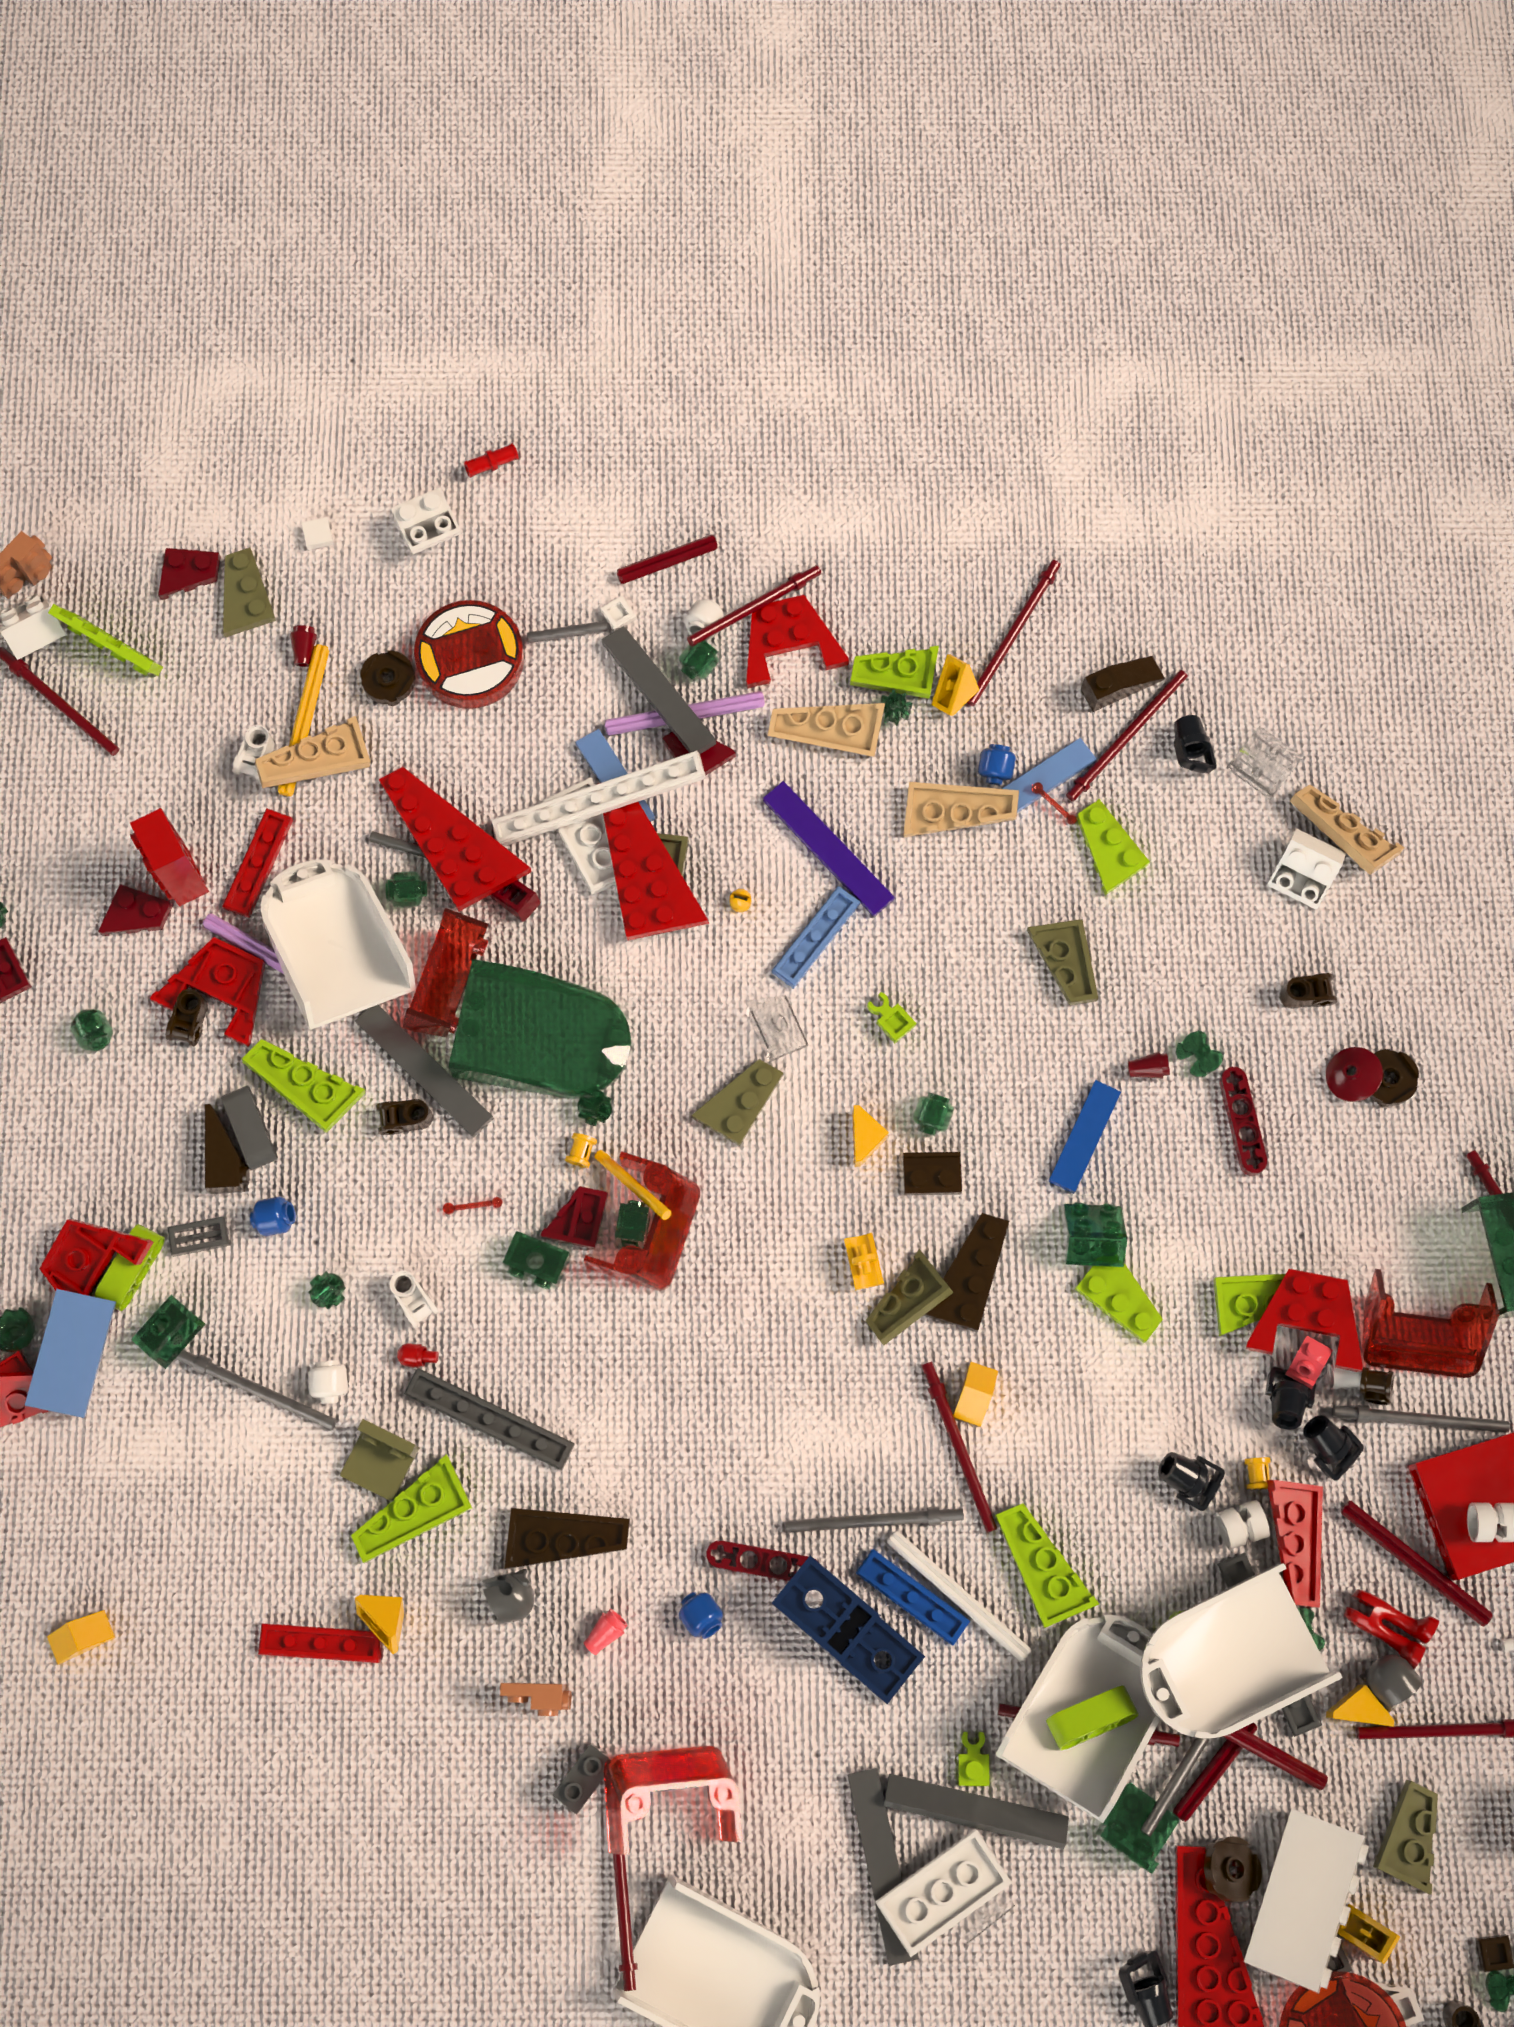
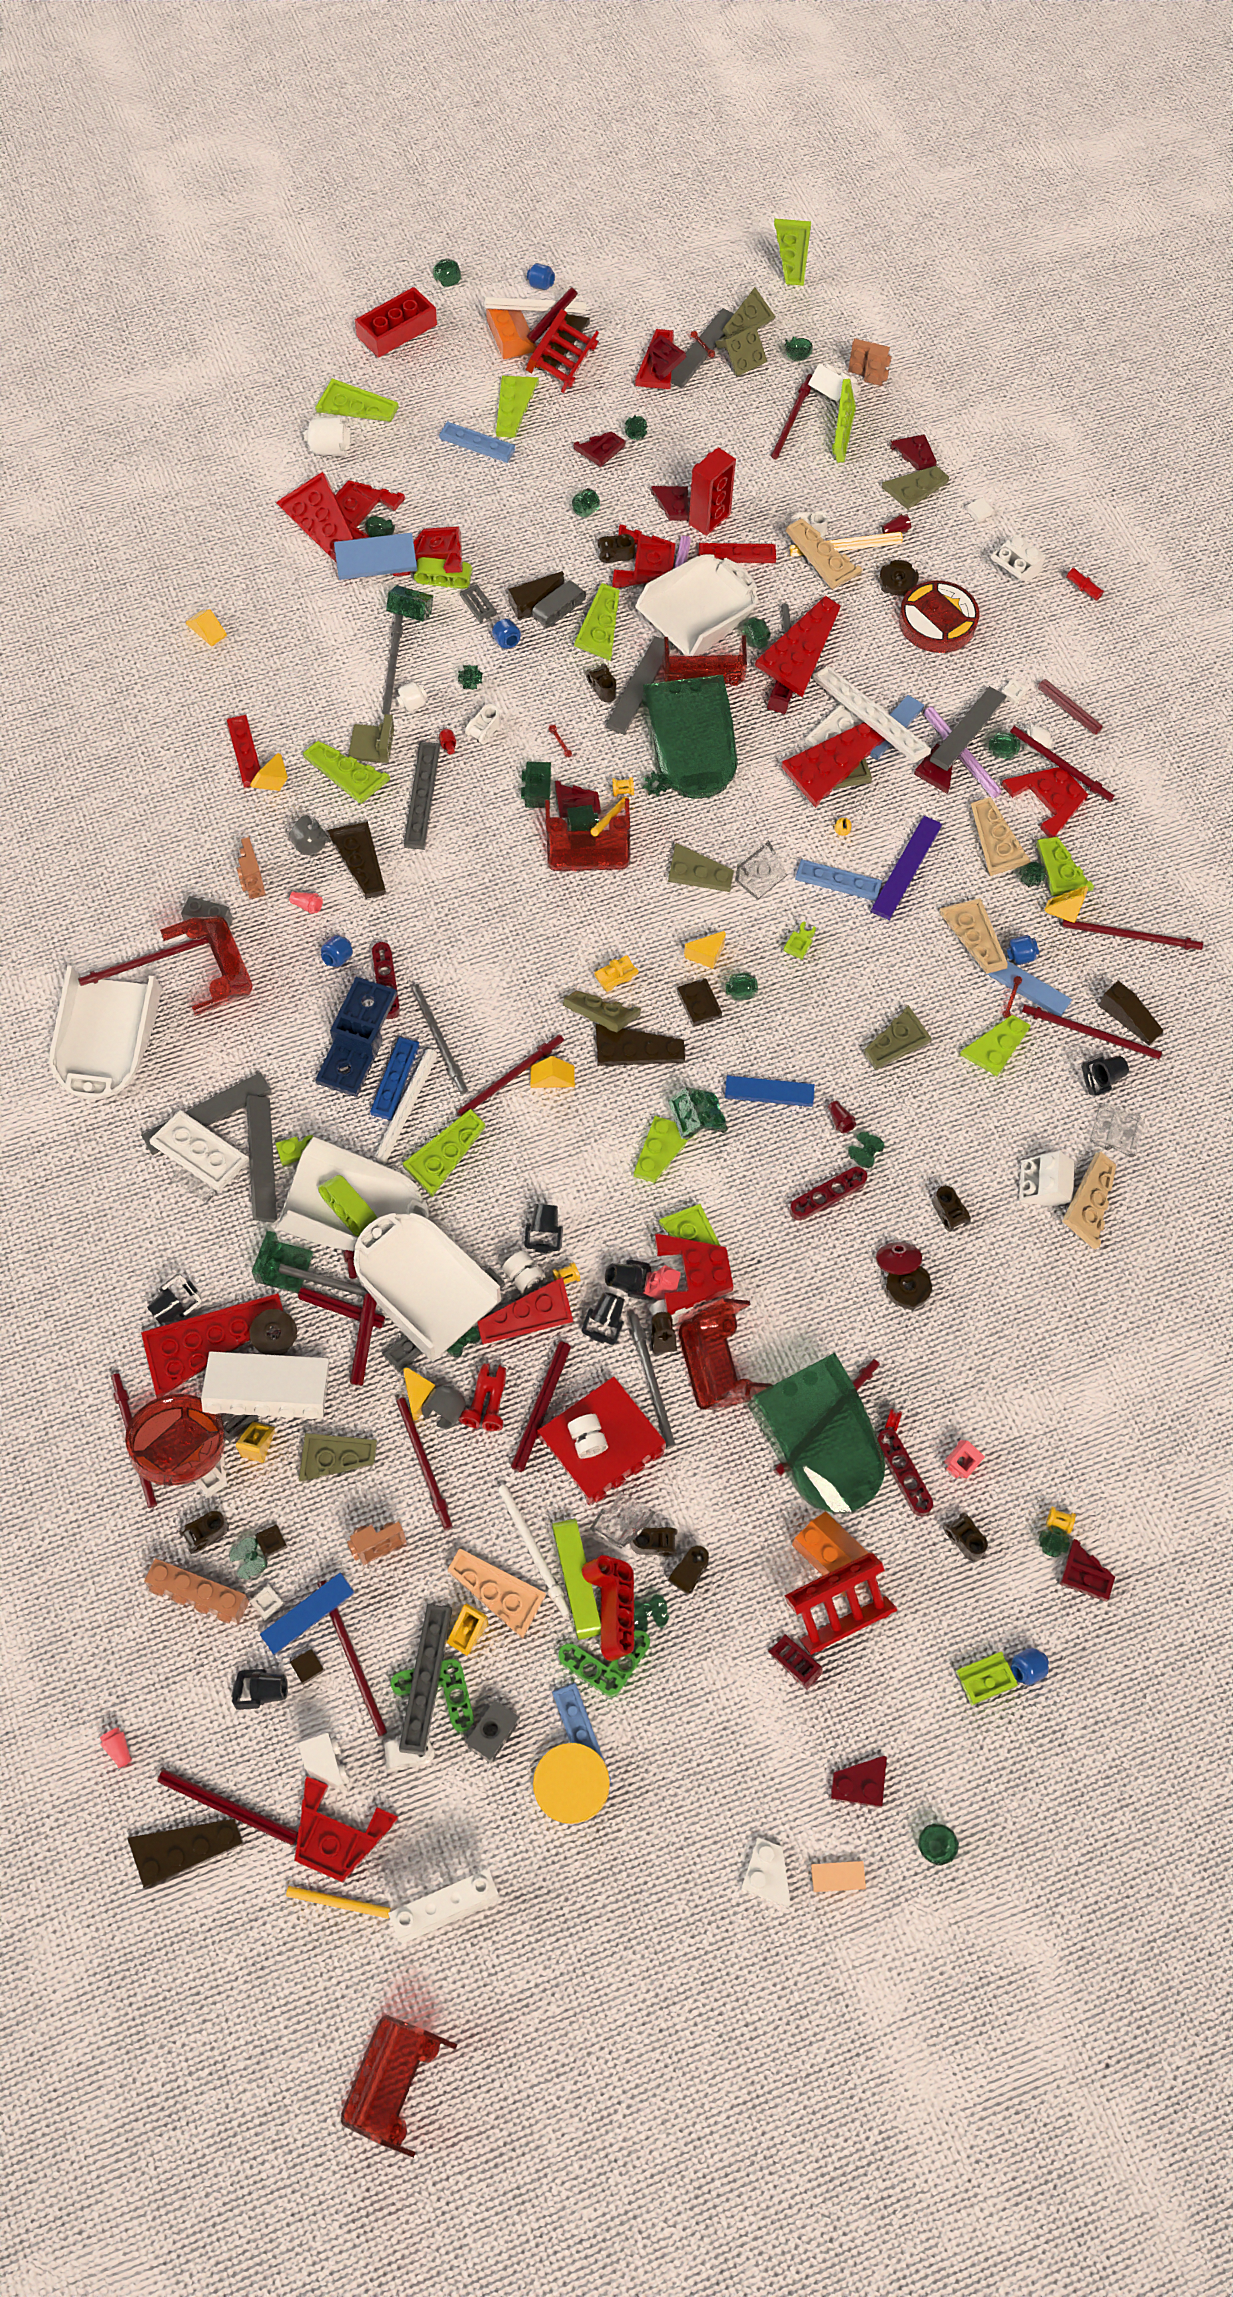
camera: 70 degrees right, 10 degrees down
(568, 631) = (985, 667): flat silver bar -> none

